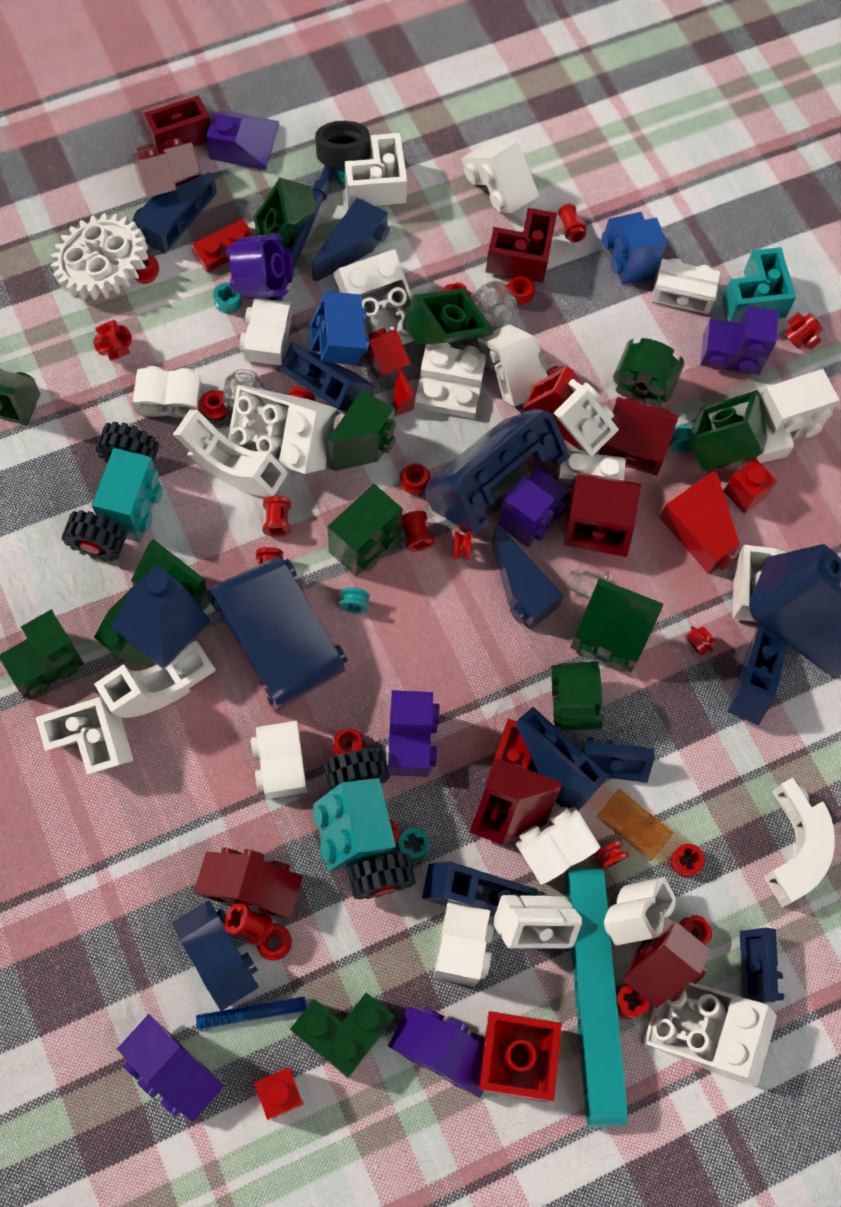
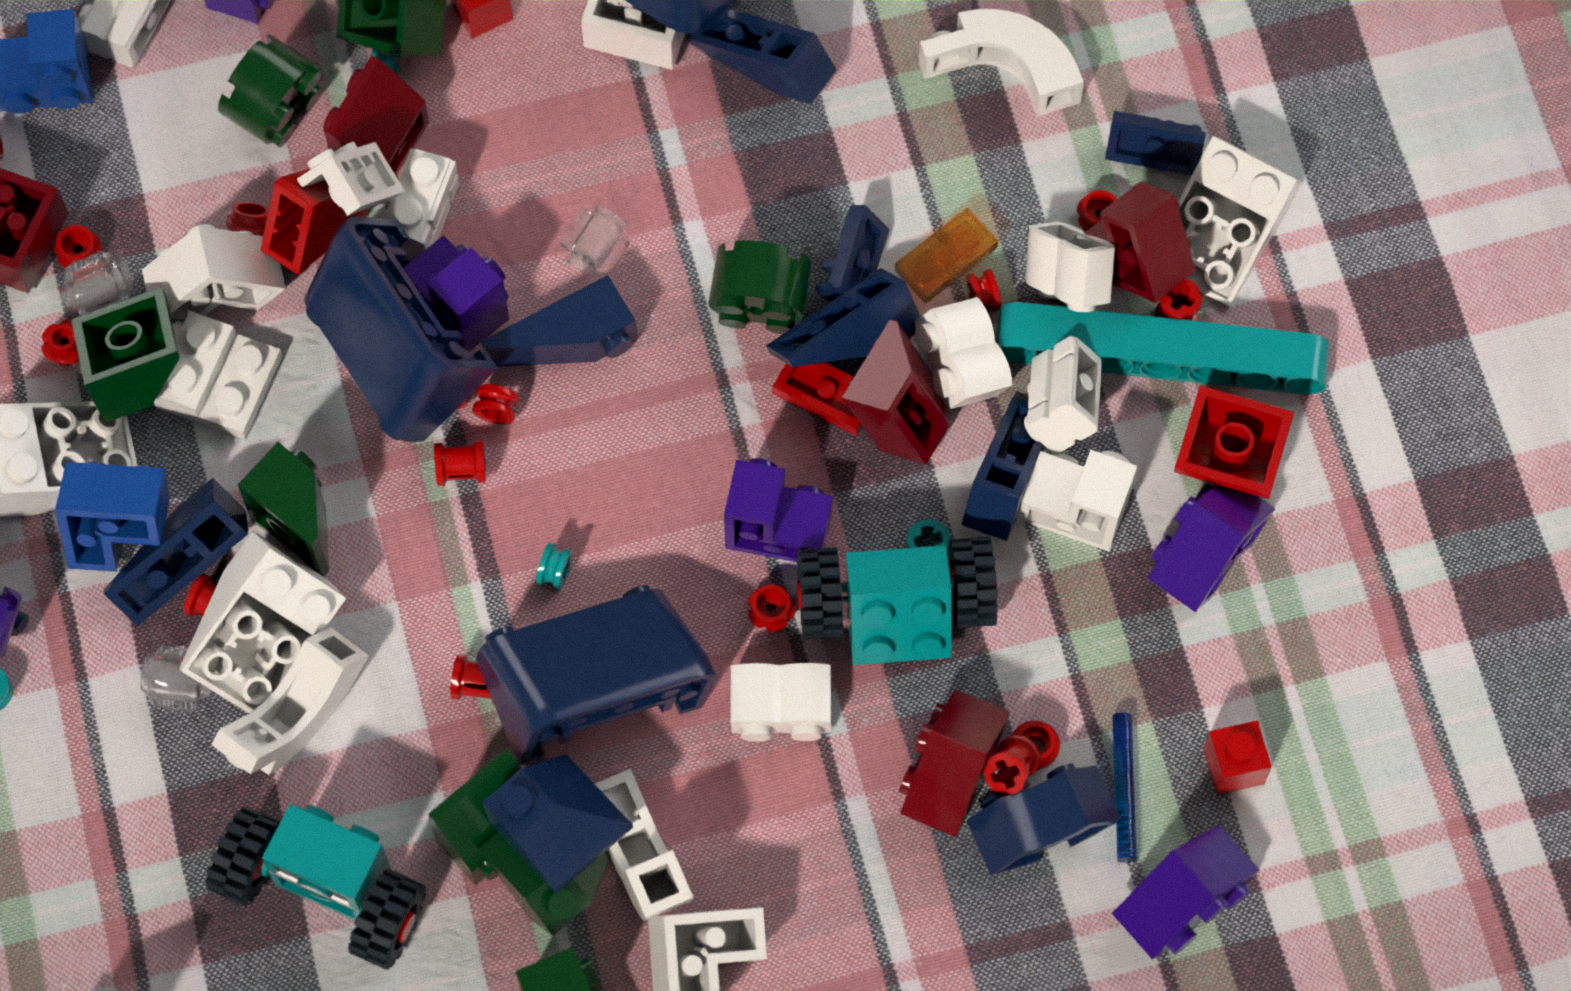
camera: 75 degrees left, 0 degrees up
(112, 340) = (35, 869): red gear -> none
(166, 392) = (148, 795): white brick -> none
(212, 412) = (183, 743): red plate -> none
(267, 331) = (70, 631): white brick -> none
(276, 516) = (396, 658): red bush -> none
(344, 1042) = (1180, 664): dark green brick -> none
(365, 530) = (456, 525): dark green brick -> none
(386, 352) = (158, 447): red brick -> none
(403, 394) = (225, 447): red slope -> none
(418, 471) = (368, 441): red plate -> none
(602, 514) = (494, 199): dark red slope -> none
(616, 626) = (672, 215): dark green slope -> none
(679, 853) = (1014, 193): red bush -> none
(700, 640) = (699, 116): red plate -> none
(703, 523) = (525, 71): red slope -> none

